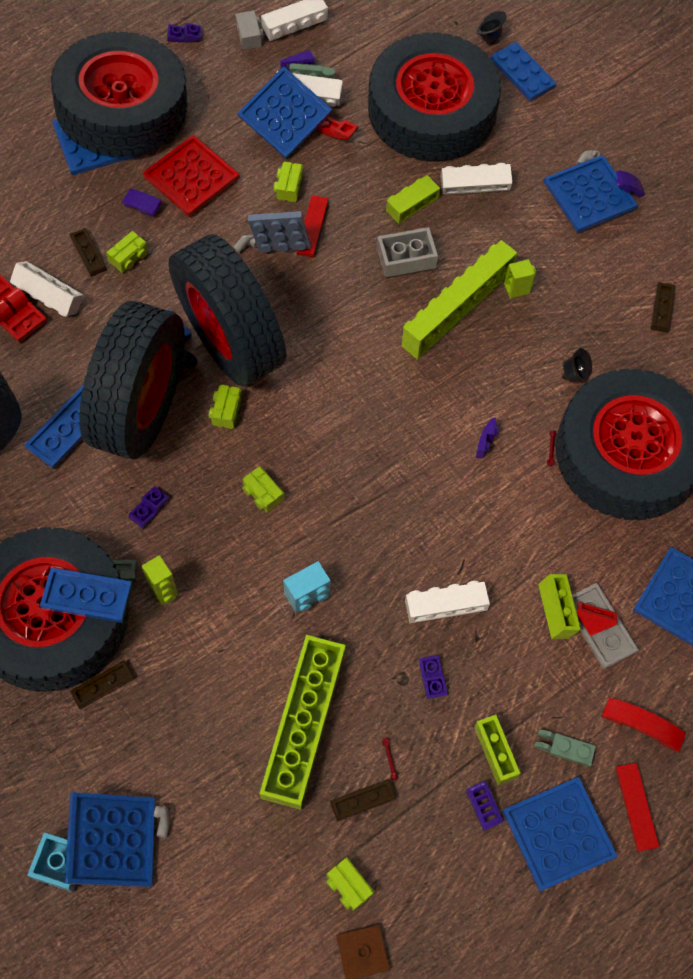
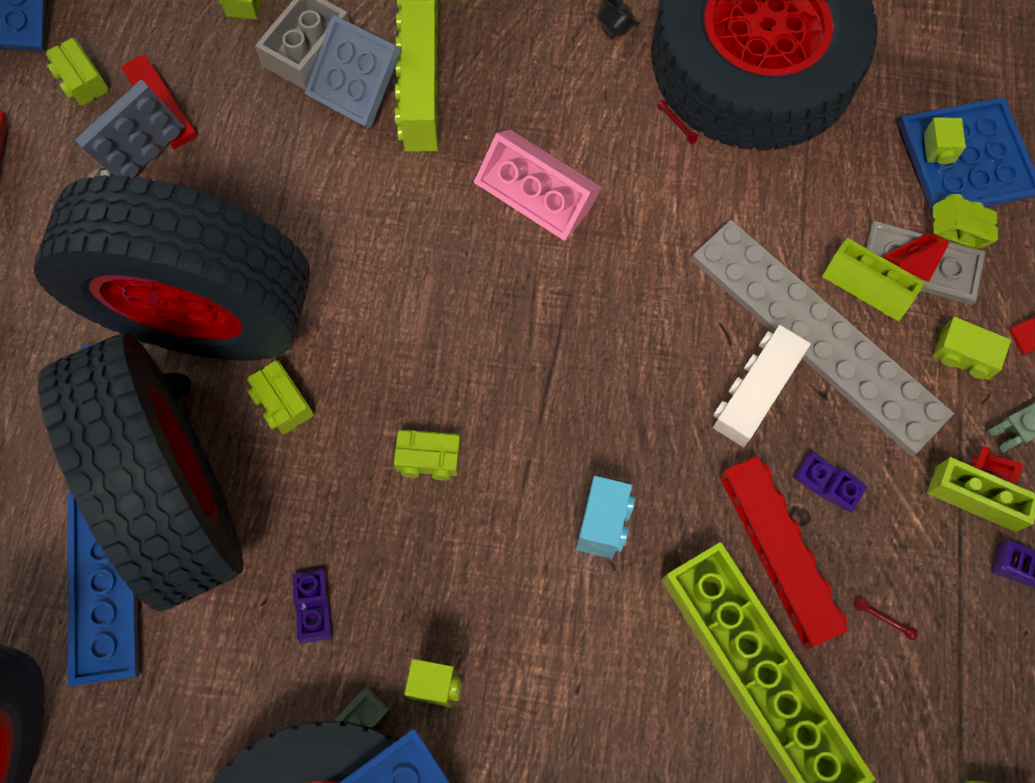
camera: 45 degrees left, 5 degrees up
(362, 800) = (910, 696): dark brown tile -> none
(372, 683) = (783, 553): none -> red brick
(410, 286) = (352, 71): none -> sand blue plate
(445, 415) = (536, 184): none -> bright pink slope
(487, 436) = (602, 162): dark purple slope -> none
(506, 613) = (837, 348): none -> light grey plate
(519, 747) = (997, 466): none -> red bracket
(573, 685) = (971, 348): none -> lime brick
(640, 624) = (965, 222): none -> lime brick
(674, 575) = (944, 140): none -> lime brick

